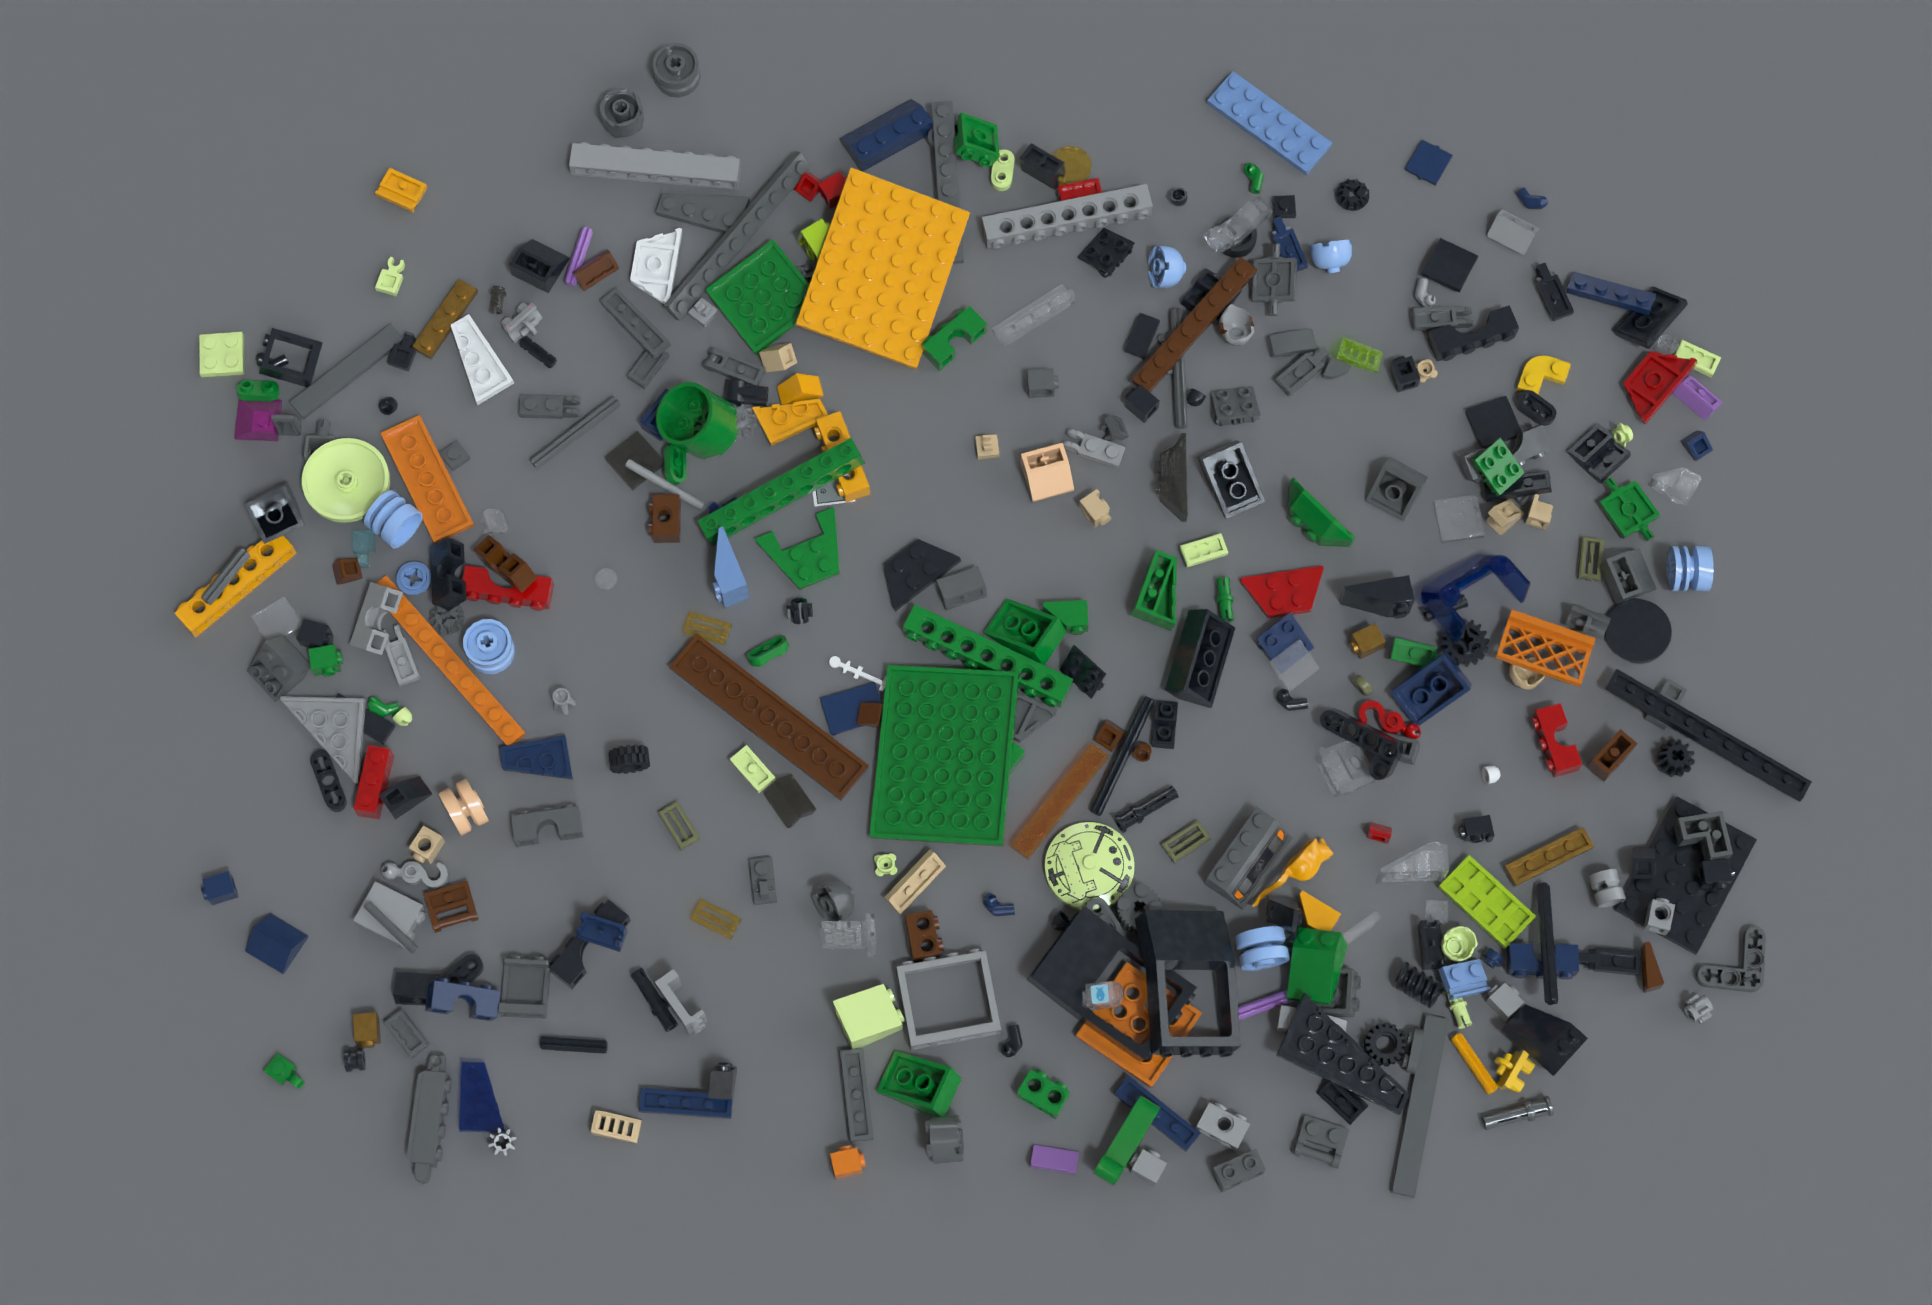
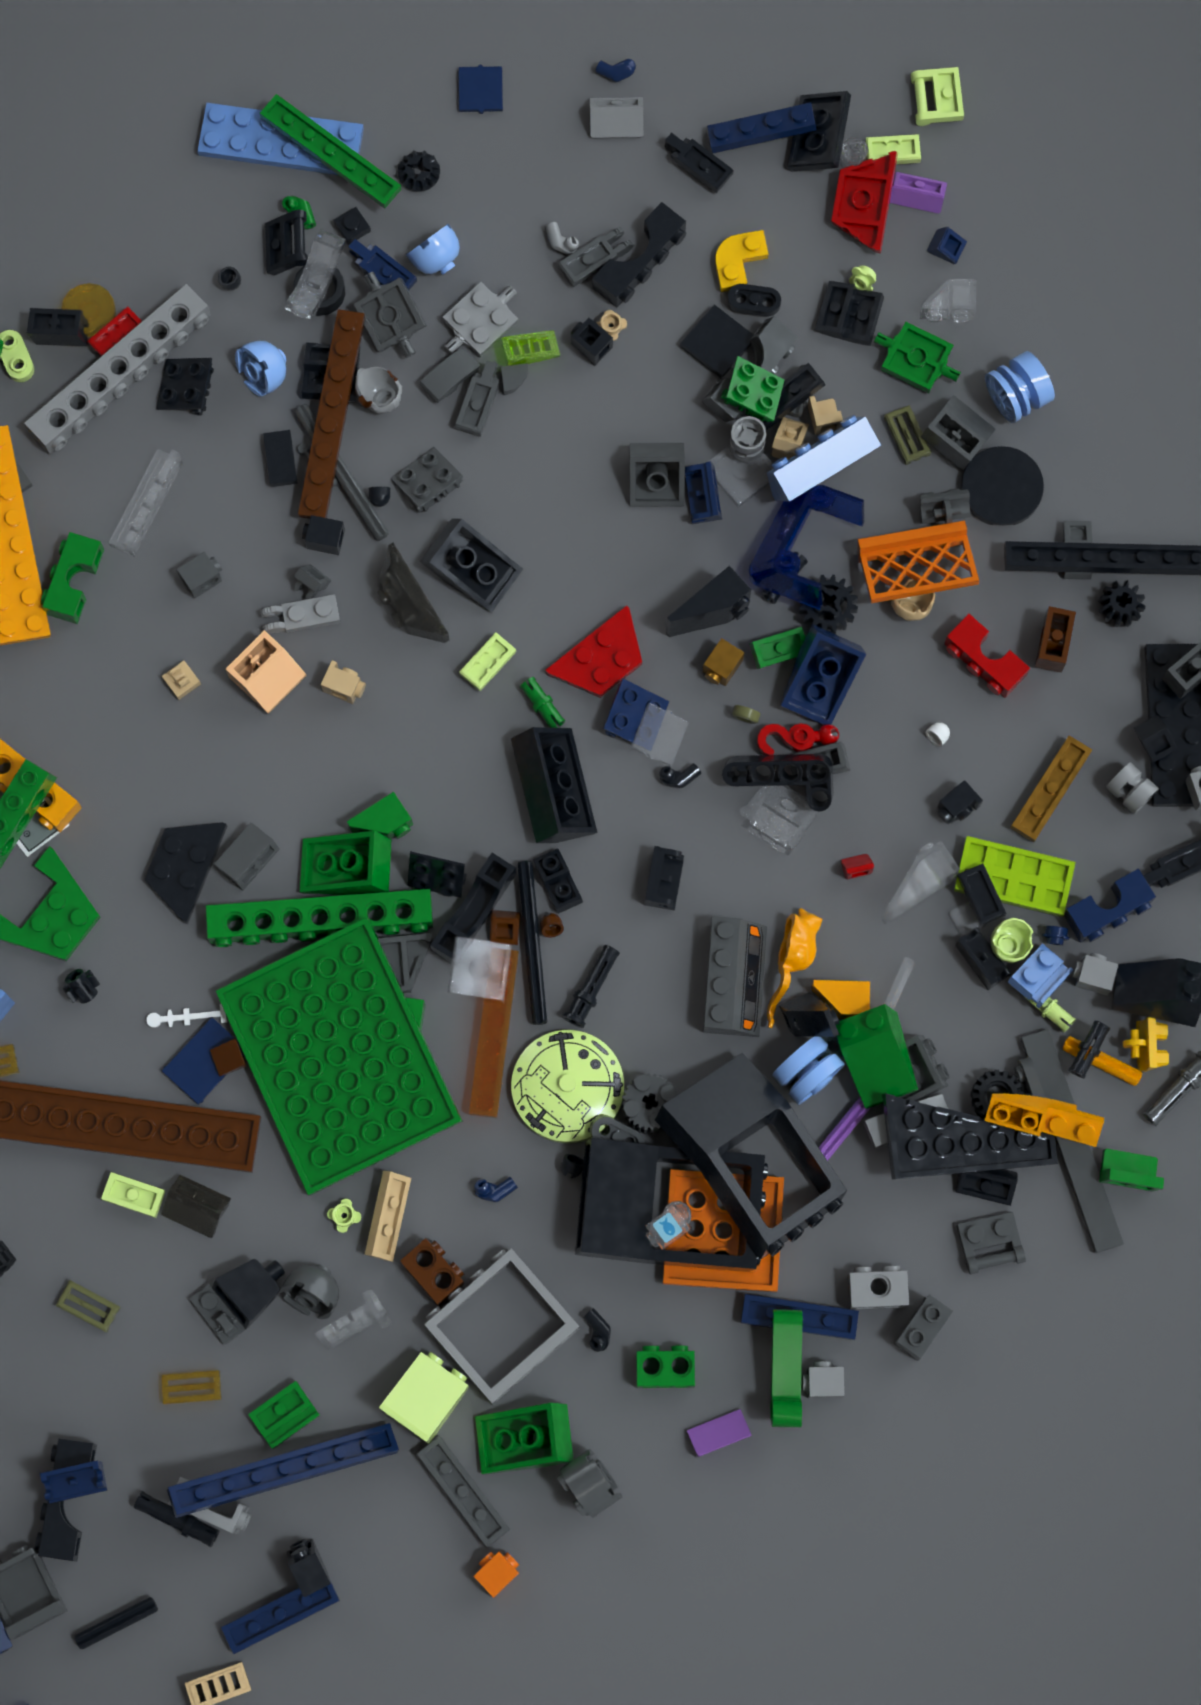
camera: 30 degrees left, 5 degrees up
(744, 1006) = (282, 1470): none -> dark blue plate
(766, 973) = (284, 1415): none -> green plate
(768, 650) = (72, 1051): green plate -> none
(792, 875) = (249, 1289): none -> black torso
(1075, 750) = (479, 968): none -> clear tile
(1080, 718) = (482, 898): none -> black arch
(1157, 592) = (464, 738): green wedge -> none
(1170, 852) = (646, 1019): olive tile -> none
(1227, 190) = (279, 242): none -> black plate
(1239, 764) = (664, 878): none -> black hinge
(1298, 148) = (330, 151): none -> green plate
(1315, 519) = (588, 558): green wedge -> none
(1335, 317) = (480, 319): none -> light grey plate
(1409, 1074) = (1044, 1115): none -> light orange slope
(1418, 985) = (995, 1010): black piece -> none
(1422, 518) = (703, 493): none -> dark blue hinge
(1449, 265) = (570, 192): black slope -> none
(1449, 1149) = (1130, 1170): none -> green panel
(1455, 900) = (981, 894): none -> black tile
(1456, 1056) = (1081, 1066): none -> black pin
(1474, 498) = (747, 432): none -> light grey wheel
(1518, 540) = (821, 459): none -> slope
(1547, 944) = (1106, 886): black axle -> none
(1757, 341) = (946, 95): none -> yellowish green plate

